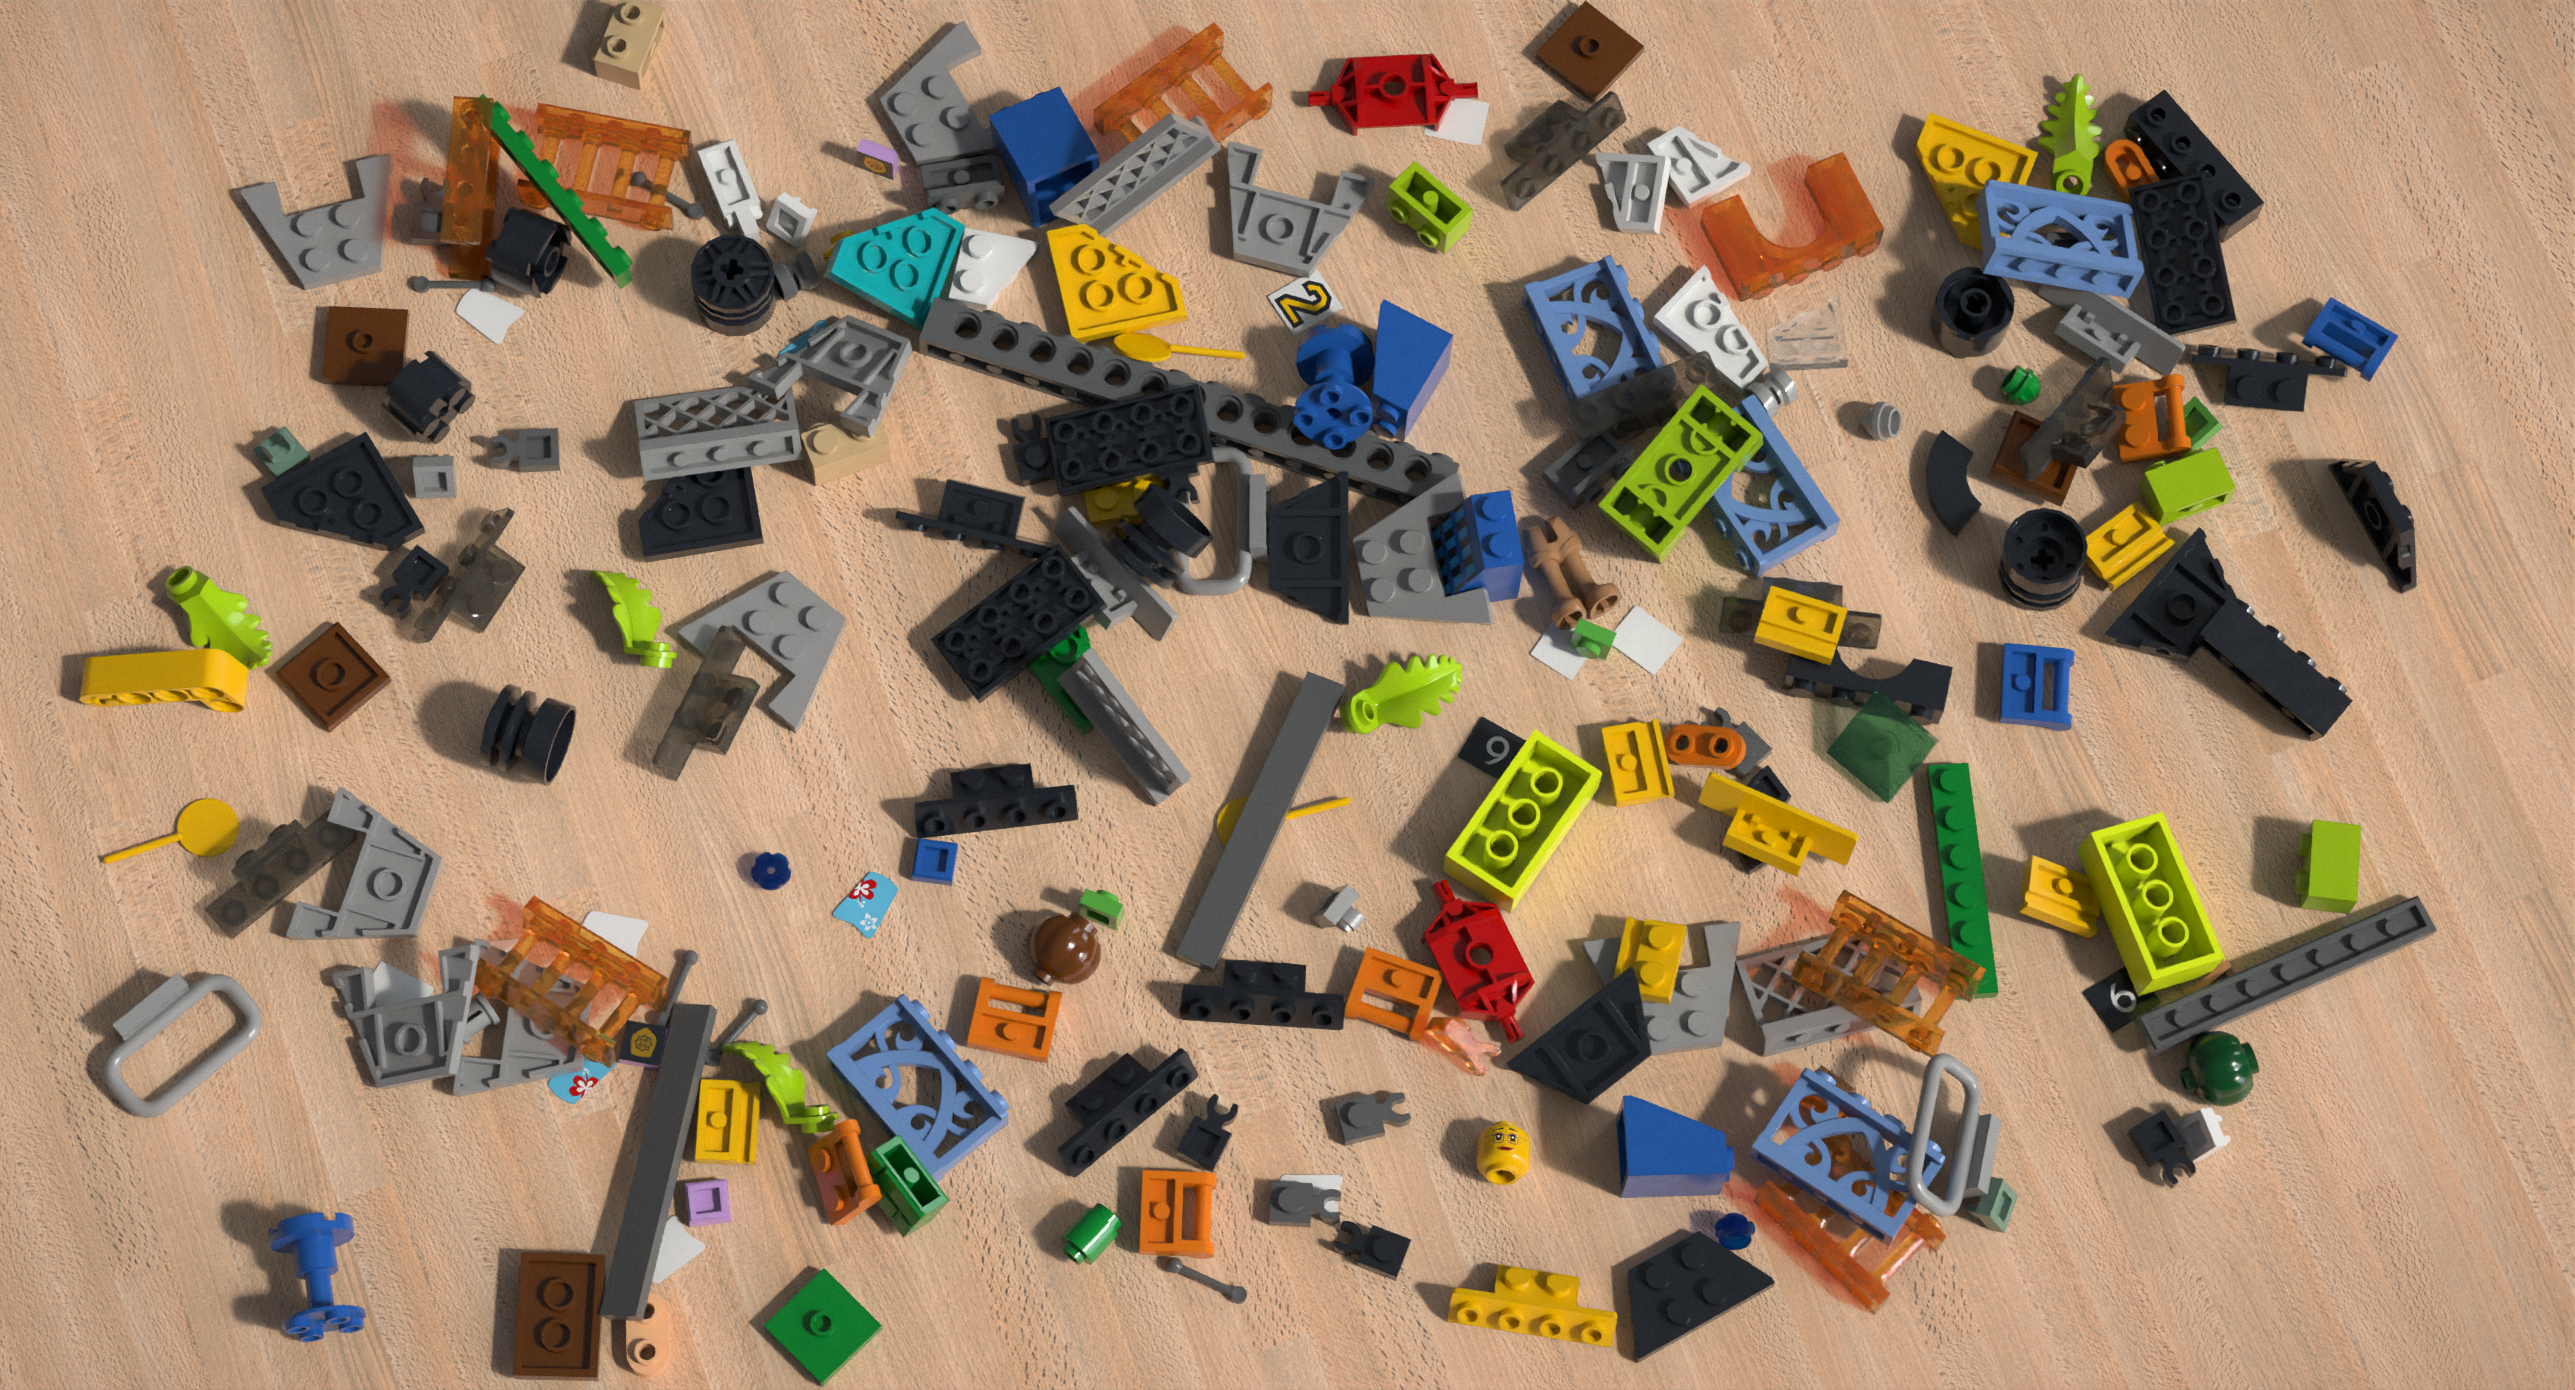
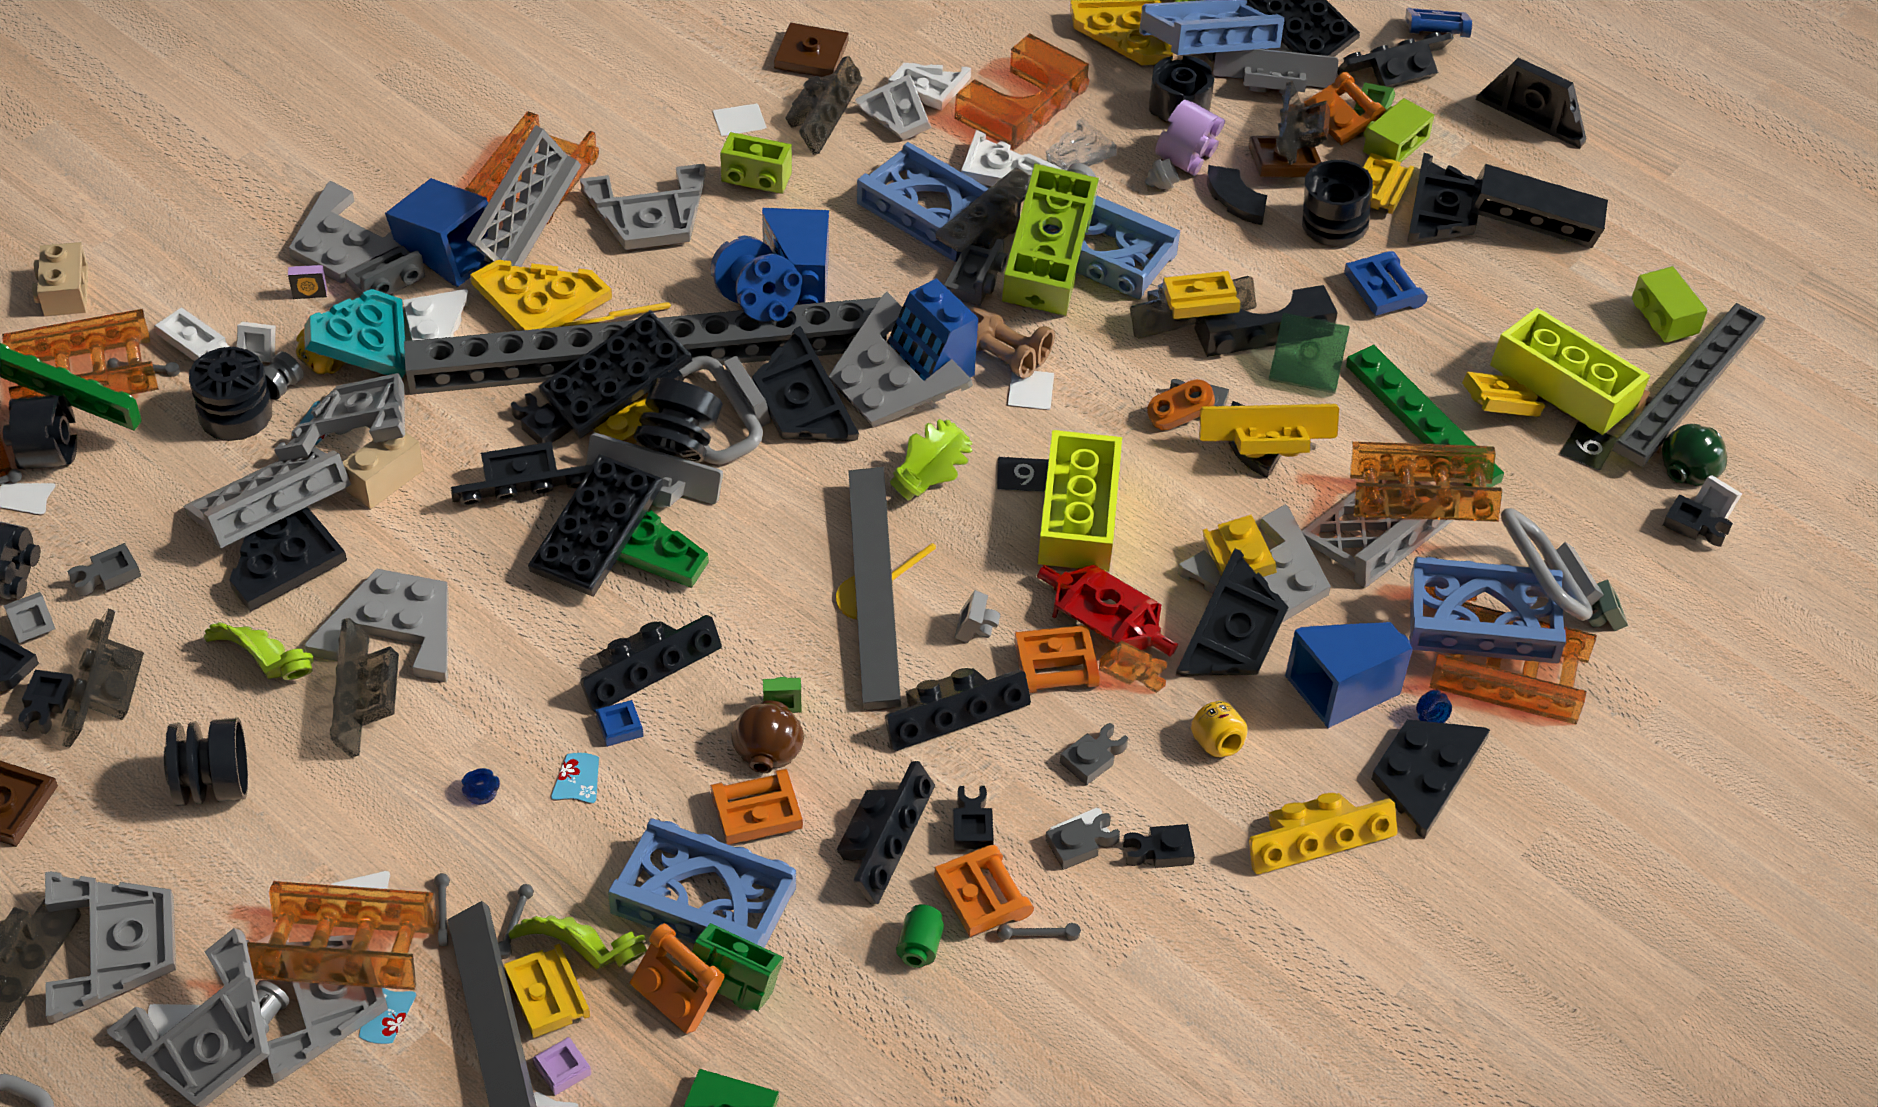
camera: 25 degrees left, 20 degrees down
(643, 1045) = (435, 965): black tile -> none
(1124, 727) = (714, 556): light grey fence -> none
(1305, 302) = (693, 258): sticker -> none
(1365, 104) = (664, 123): red plate -> none
(1592, 640) = (1050, 371): bright green plate -> none
(1637, 763) = (1143, 437): yellow plate -> none
(1645, 640) = (1086, 364): white sticker -> none
(1935, 387) = (1190, 137): none -> lavender brick
(2021, 386) = (1243, 122): green plate -> none

